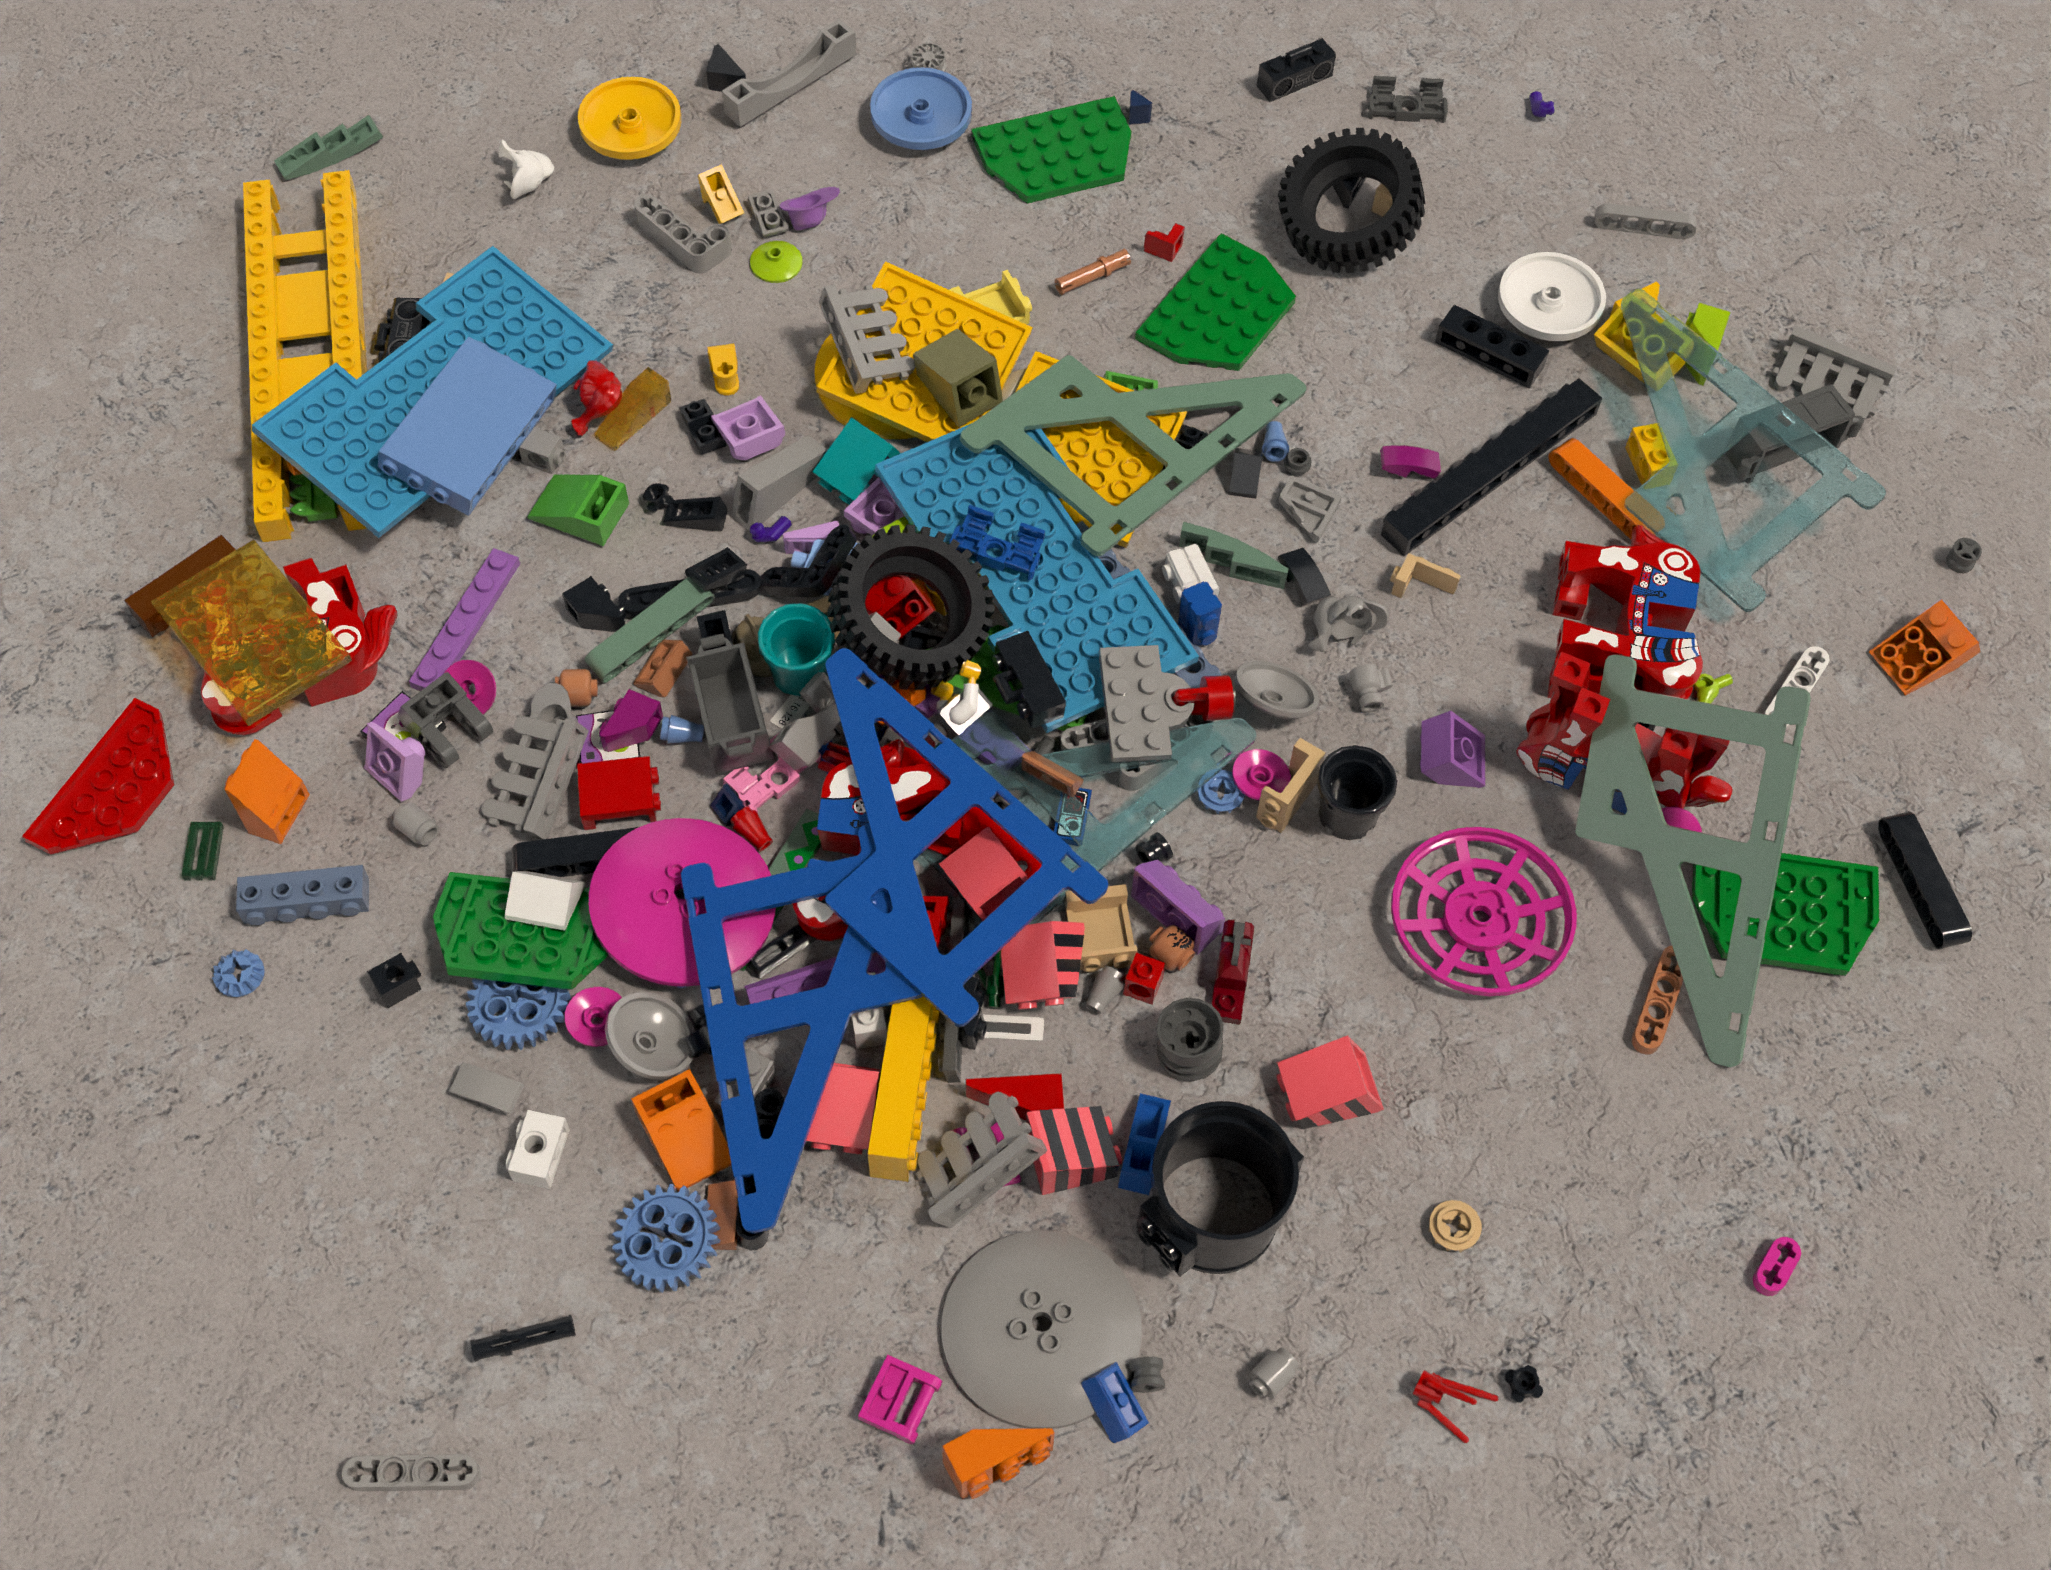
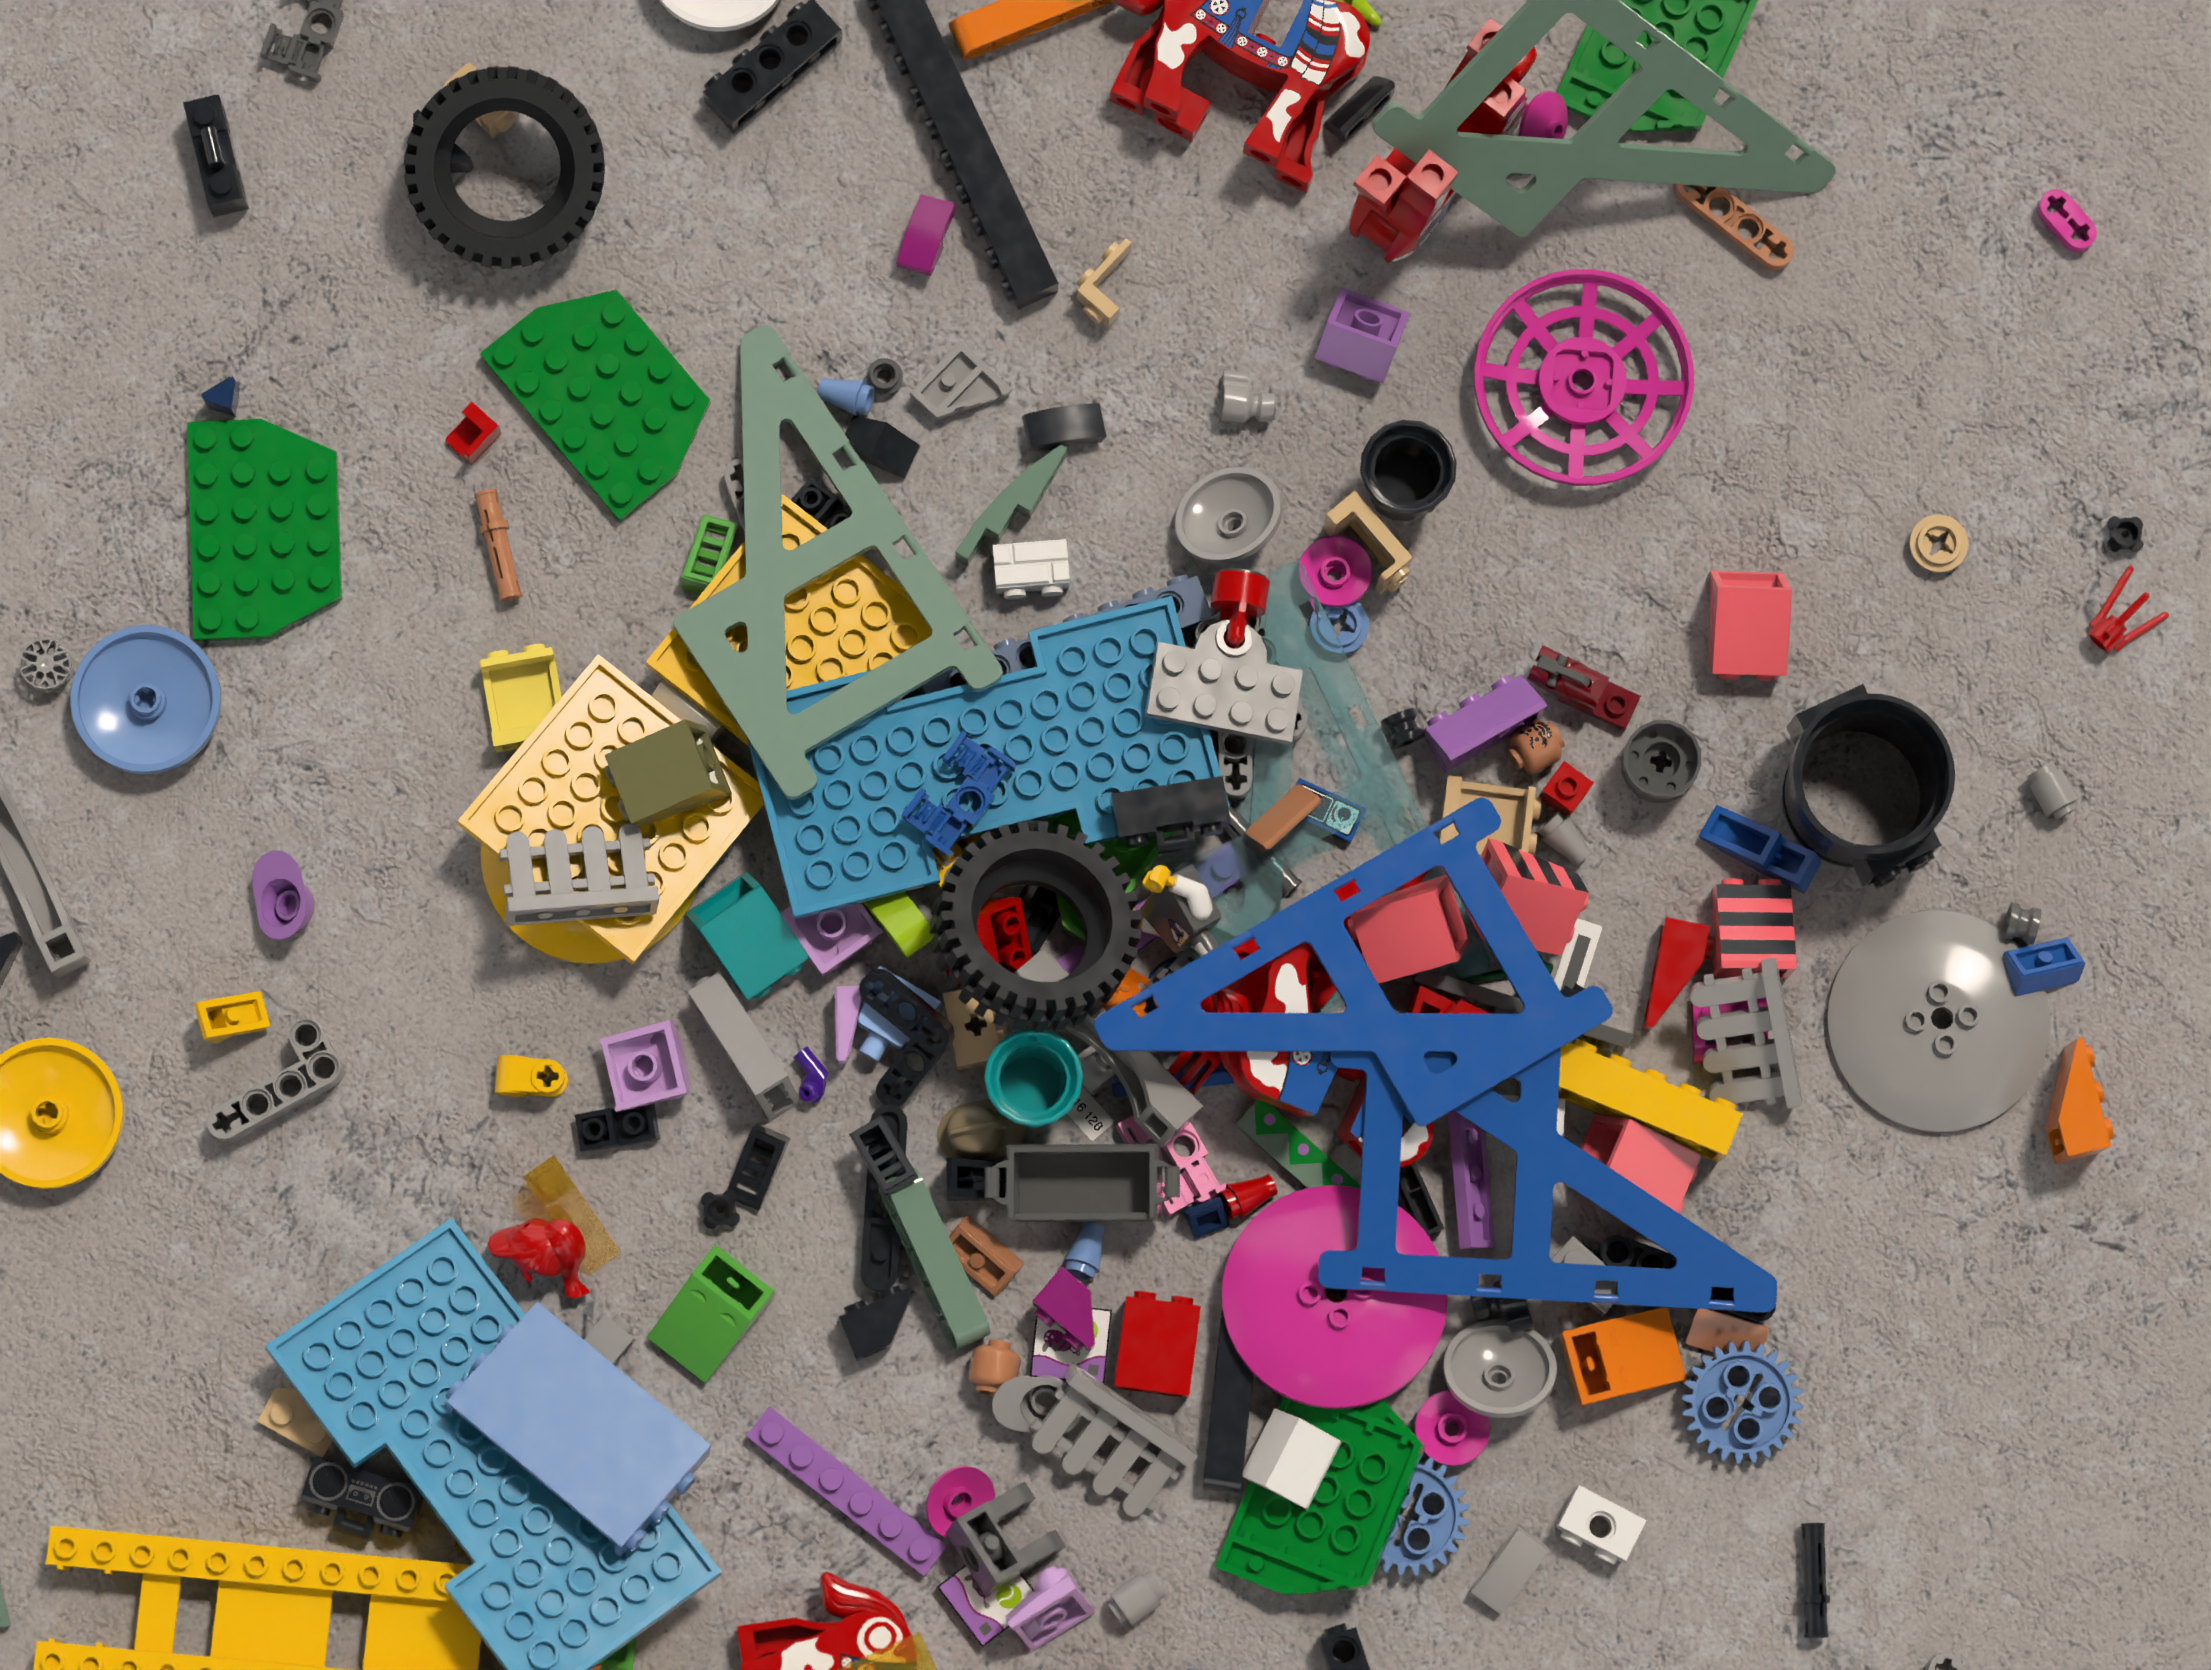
camera: 80 degrees left, 20 degrees up
(528, 169) = (102, 1275): white piece -> none
(767, 213) = (269, 959): light grey slope -> none
(776, 261) = (362, 983): lime dish -> none
(890, 1393) = (1975, 1201): dark pink plate -> none
(1200, 614) = (1101, 574): blue brick -> none
(1346, 619) = (1138, 404): light grey piece -> none

